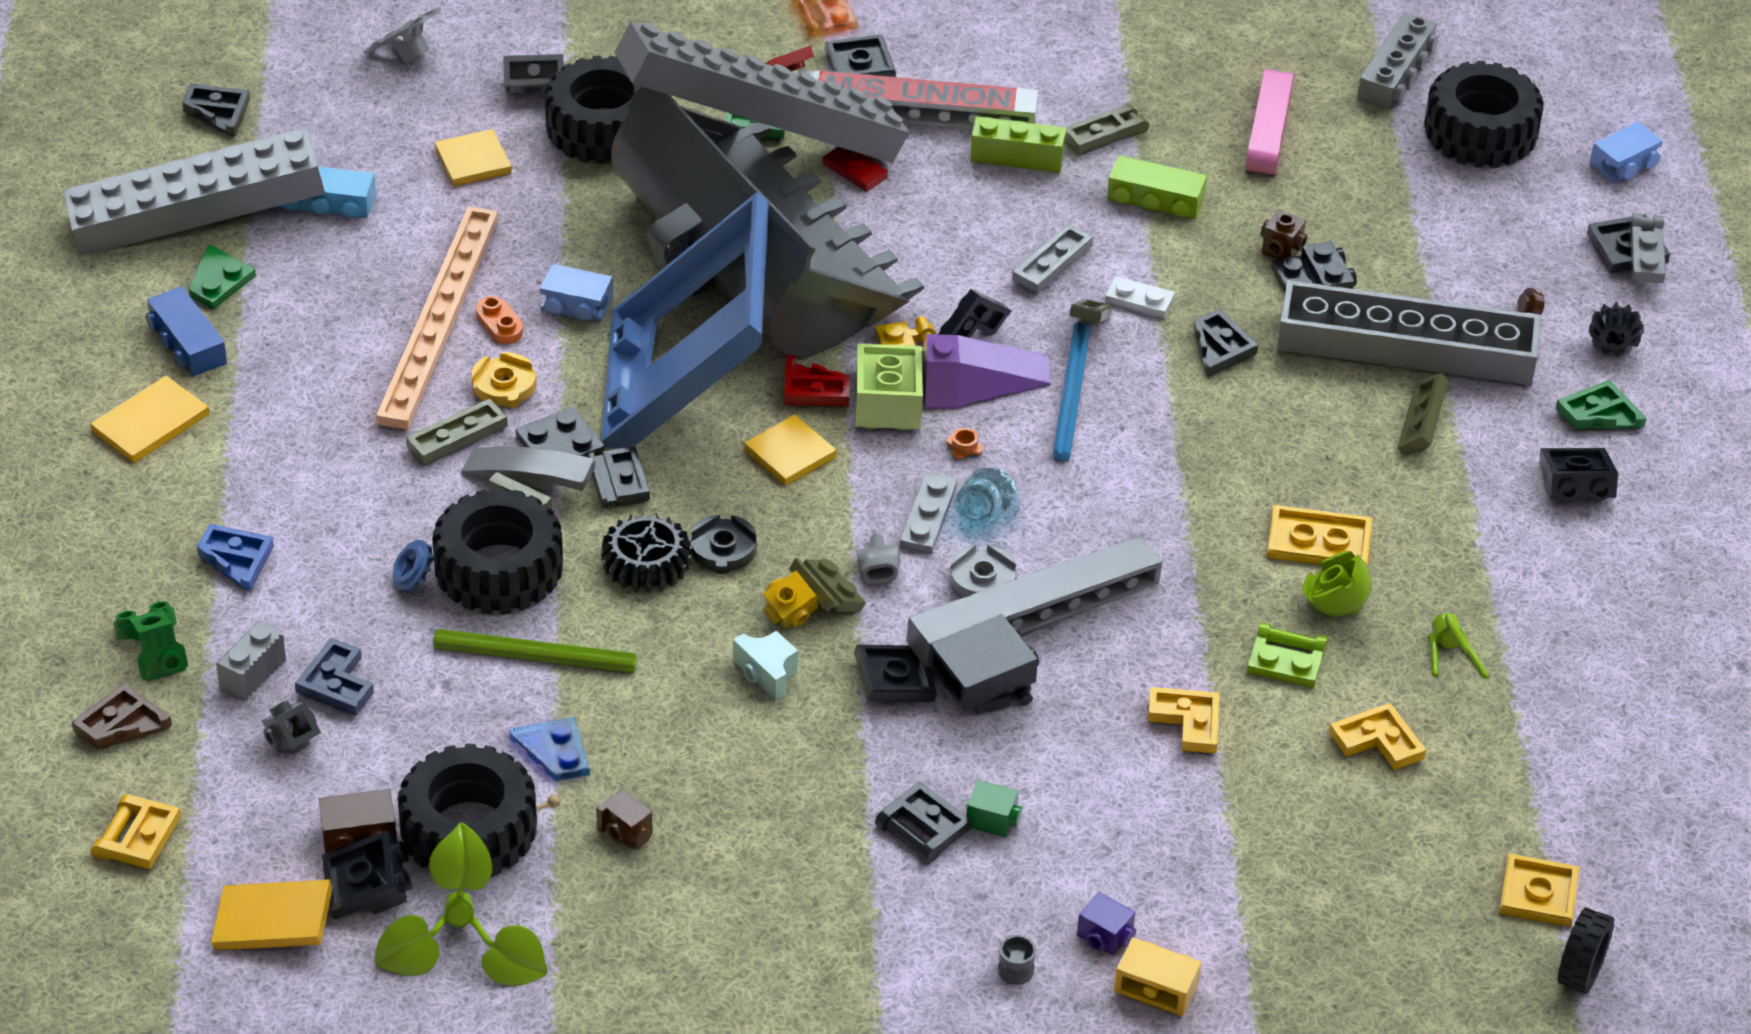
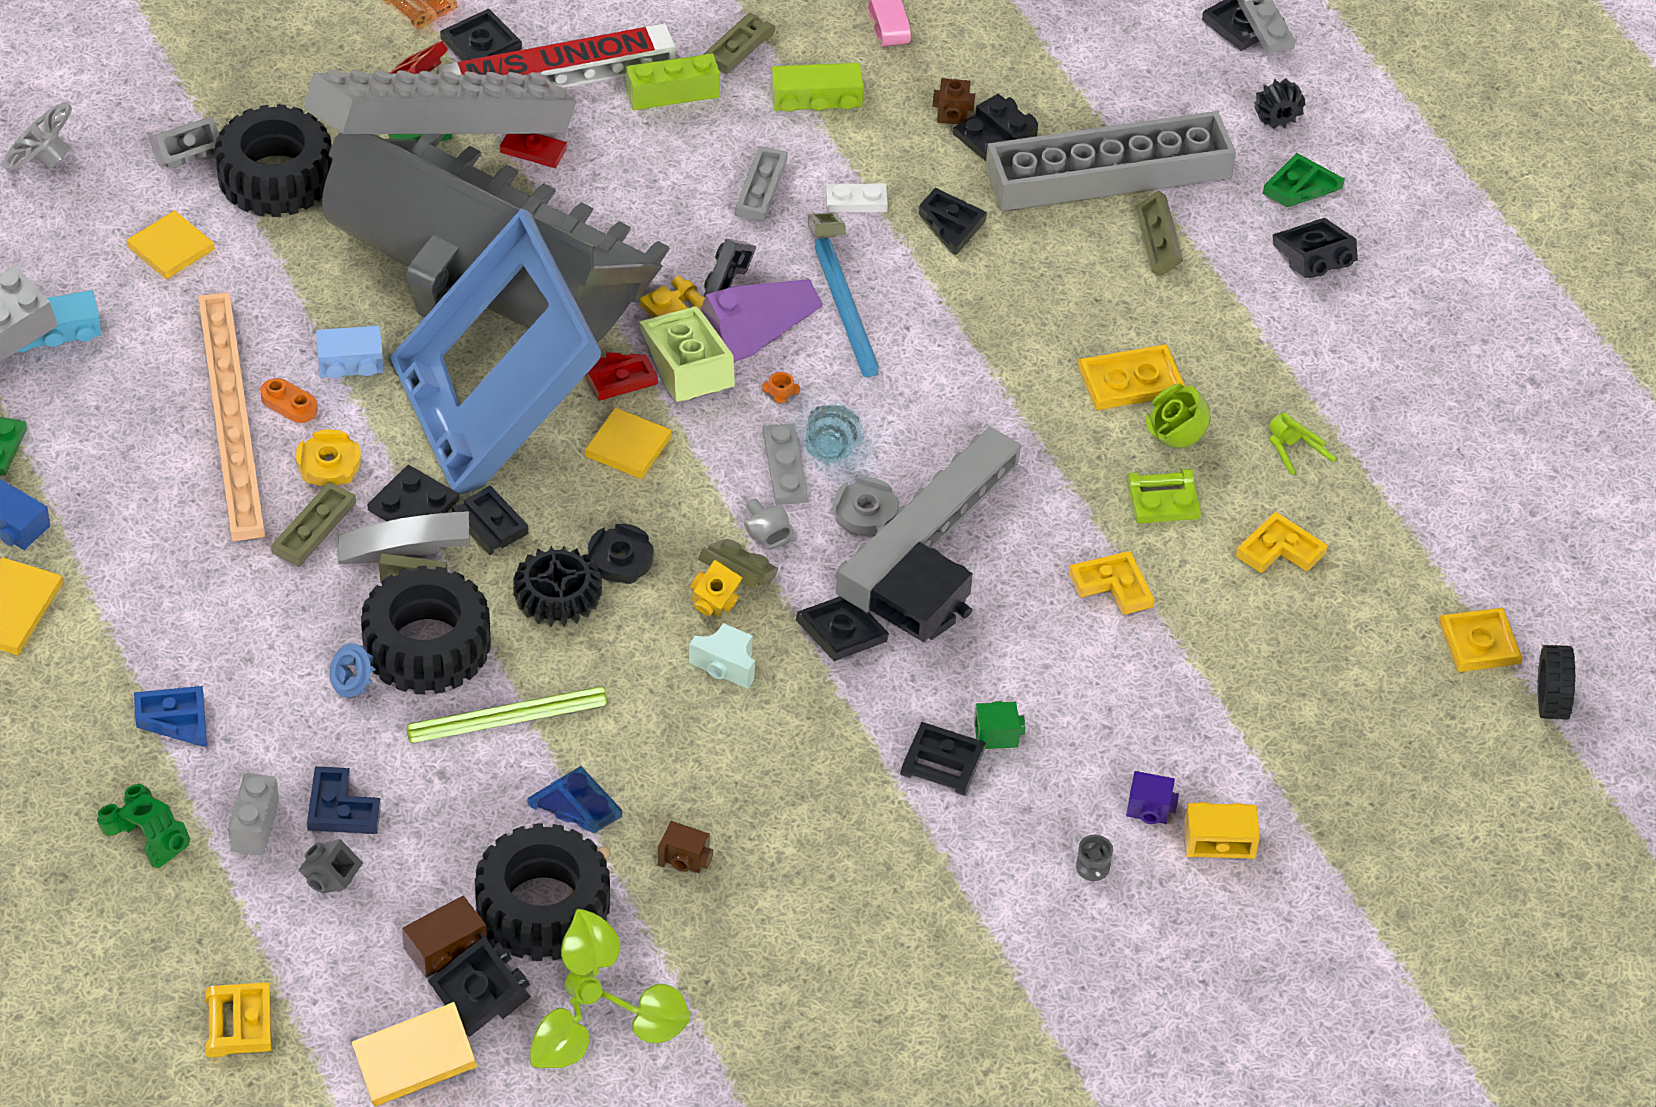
camera: 25 degrees left, 5 degrees up
(119, 718) = (159, 913): reddish brown wing -> none
(1531, 302) = (1193, 100): reddish brown plate -> none

